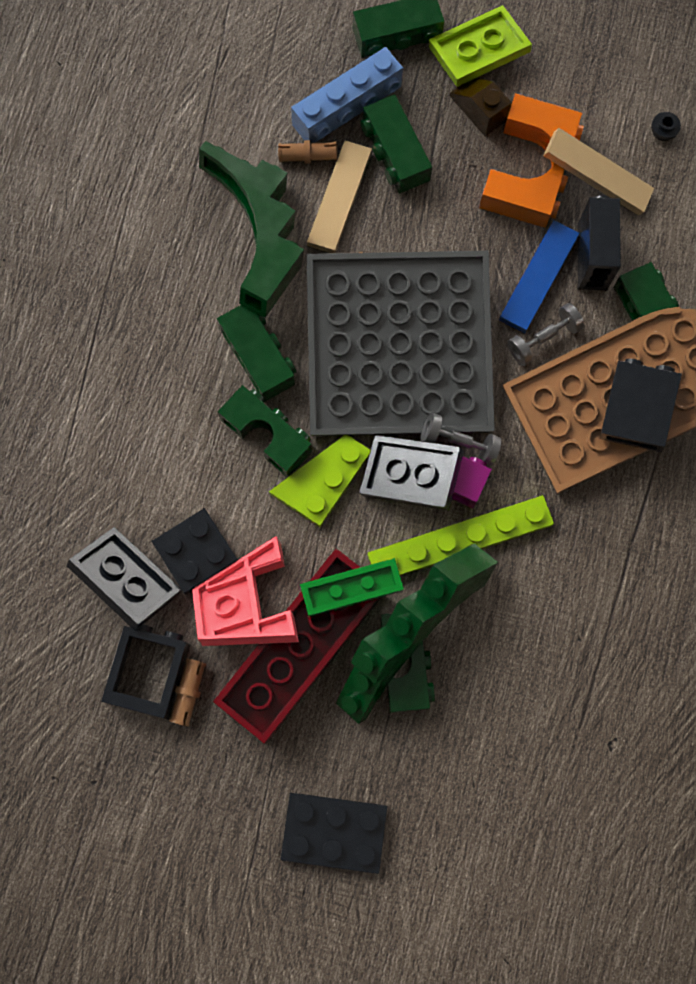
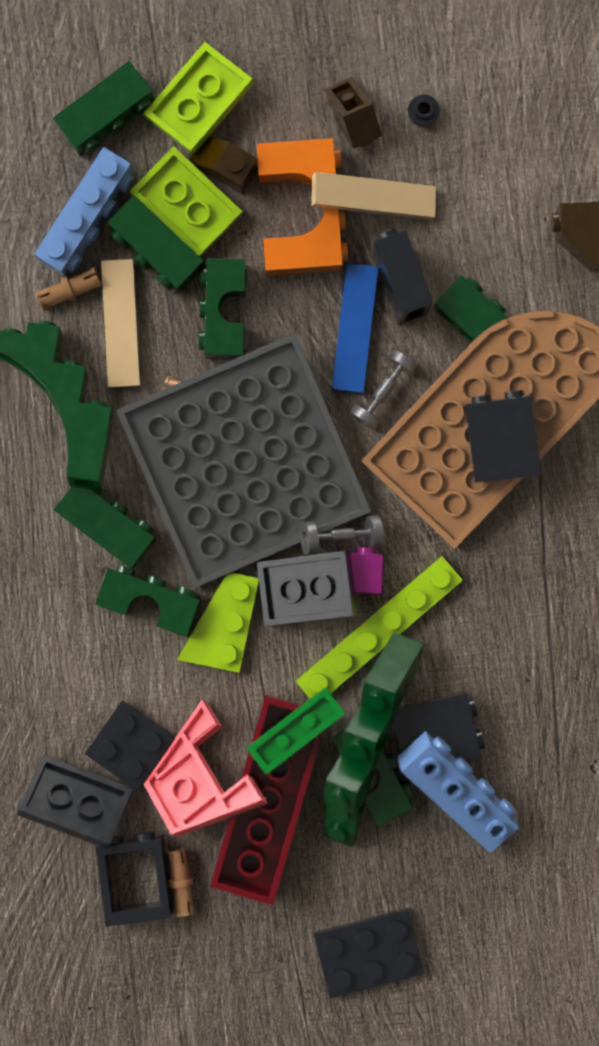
camera: 15 degrees left, 10 degrees up
(438, 120) = (186, 201): none -> lime plate
(441, 194) = (222, 281): none -> dark green arch
(479, 650) = (441, 717): none -> black brick
(479, 709) = (458, 792): none -> medium blue brick
(606, 105) = (353, 112): none -> dark brown slope

